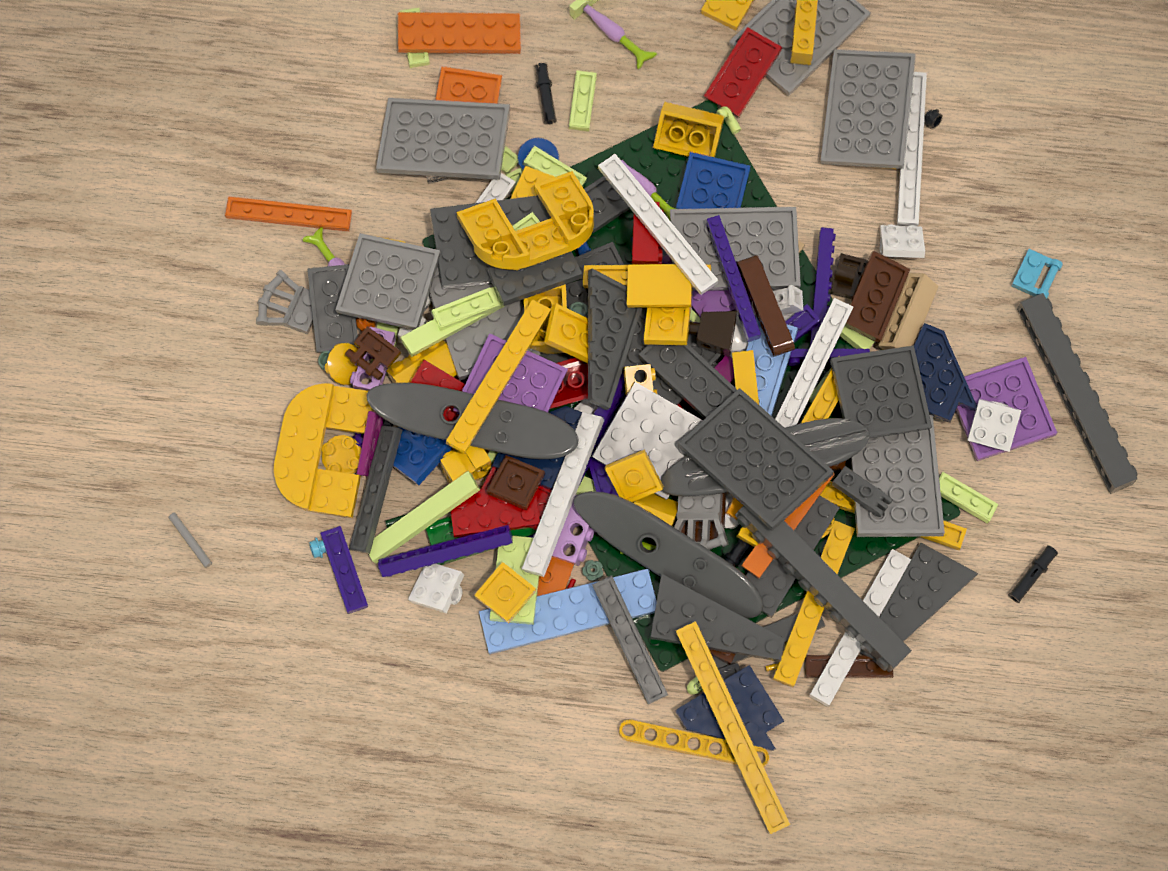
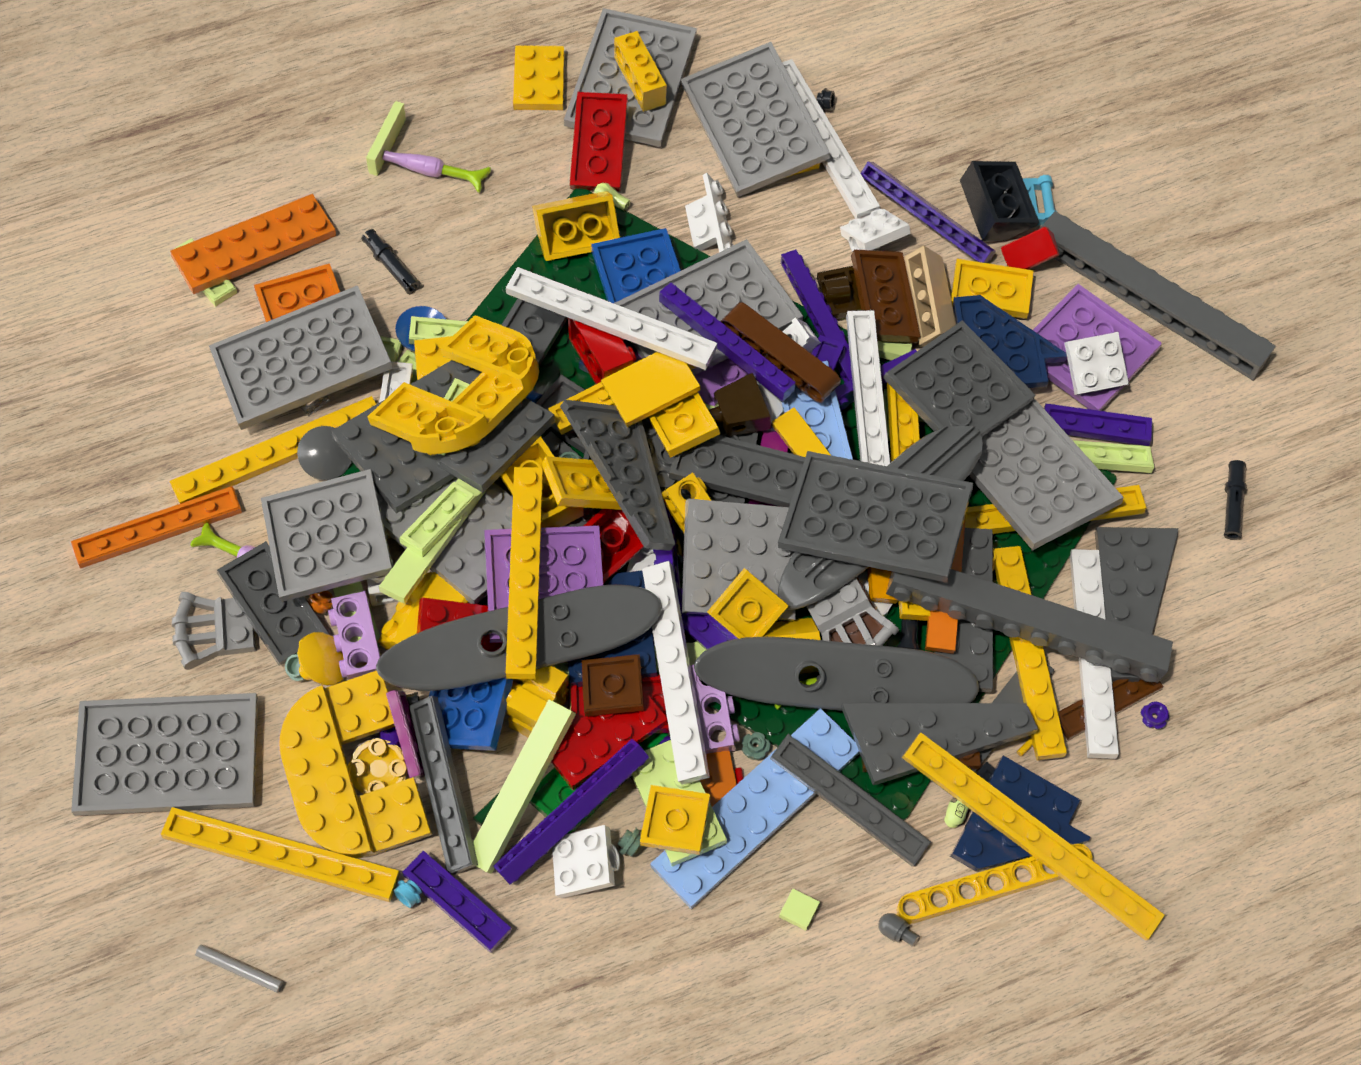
camera: 30 degrees left, 10 degrees down
(215, 376) = (165, 754): none -> light grey plate
(252, 480) = (280, 854): none -> yellow plate
(376, 347) = (353, 616): reddish brown plate -> none
(389, 198) = (257, 458): none -> yellow plate
(418, 218) = (321, 454): none -> dark grey dish
(472, 589) = (629, 842): none -> sand green plate
(557, 692) = (799, 909): none -> yellowish green tile
(582, 100) = (436, 251): yellowish green tile -> none
(611, 738) = (896, 929): none -> dark grey cylinder
(789, 173) = (708, 218): none -> white bracket
(862, 491) = (1008, 498): dark grey hinge -> none
(878, 688) = (1158, 709): none -> dark purple plate
(951, 246) = (927, 212): none -> dark purple piece
(963, 327) = (1001, 285): none -> yellow plate
(971, 469) = (1102, 424): none -> dark purple plate
(1005, 314) = (1031, 249): none -> red slope
(1008, 262) = (998, 199): none -> black slope

